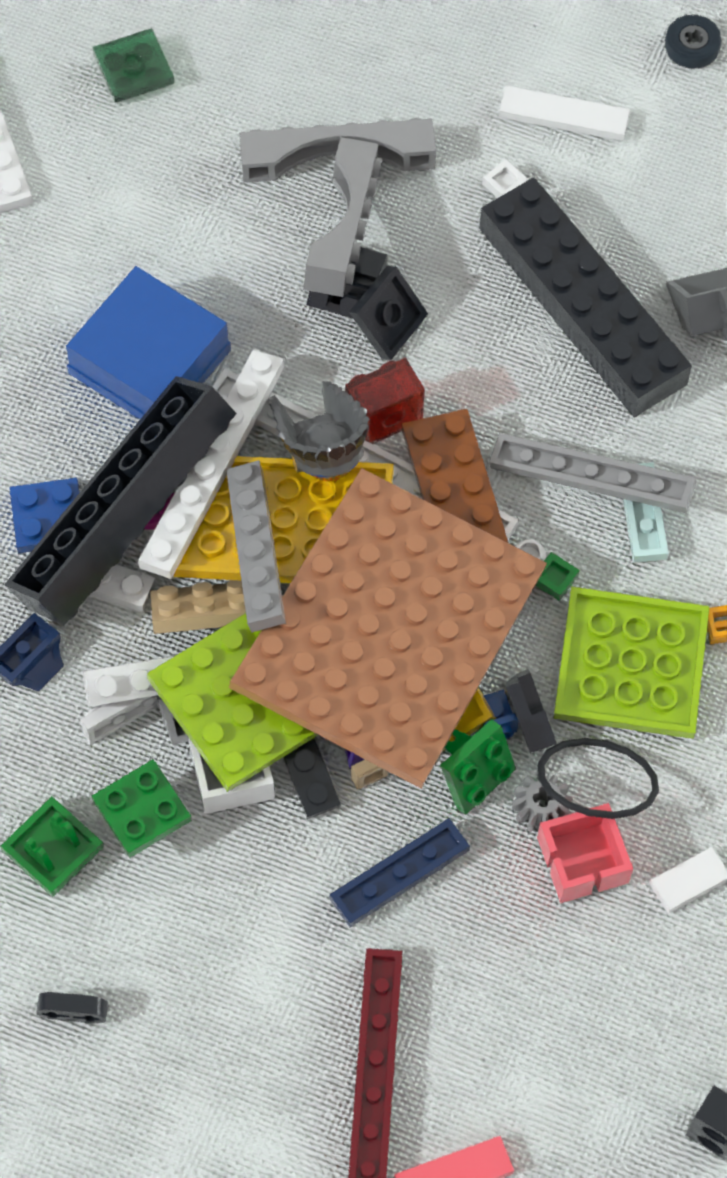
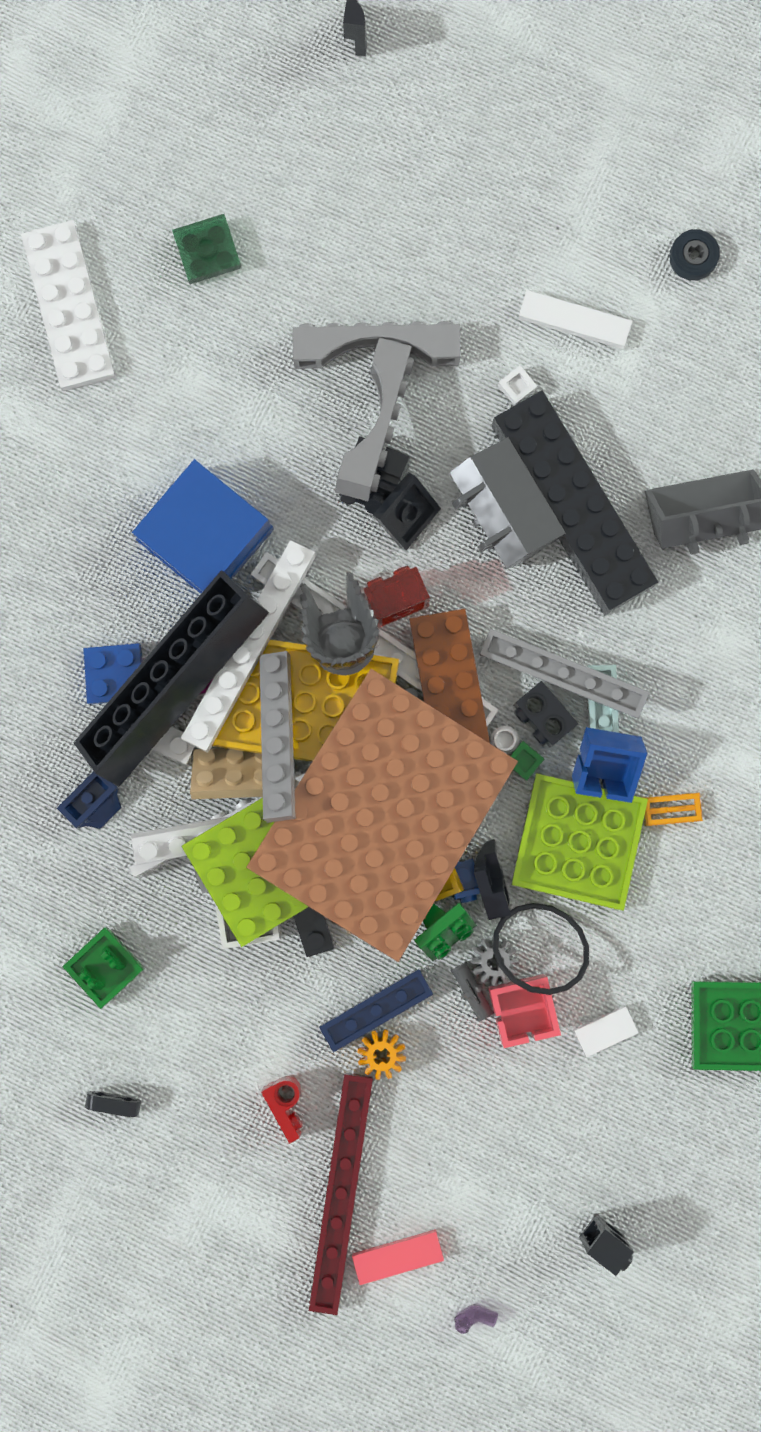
camera: 10 degrees right, 20 degrees up
(141, 808) = (173, 949): green plate -> none
(289, 994) = (288, 1121): none -> red plate
(416, 933) = (381, 1044): none -> light orange gear
(504, 297) = (506, 504): none -> dark grey piece
(518, 842) = (481, 1008): none -> dark grey pin
(581, 518) = (550, 710): none -> black brick
(657, 561) = (609, 757): none -> blue piece

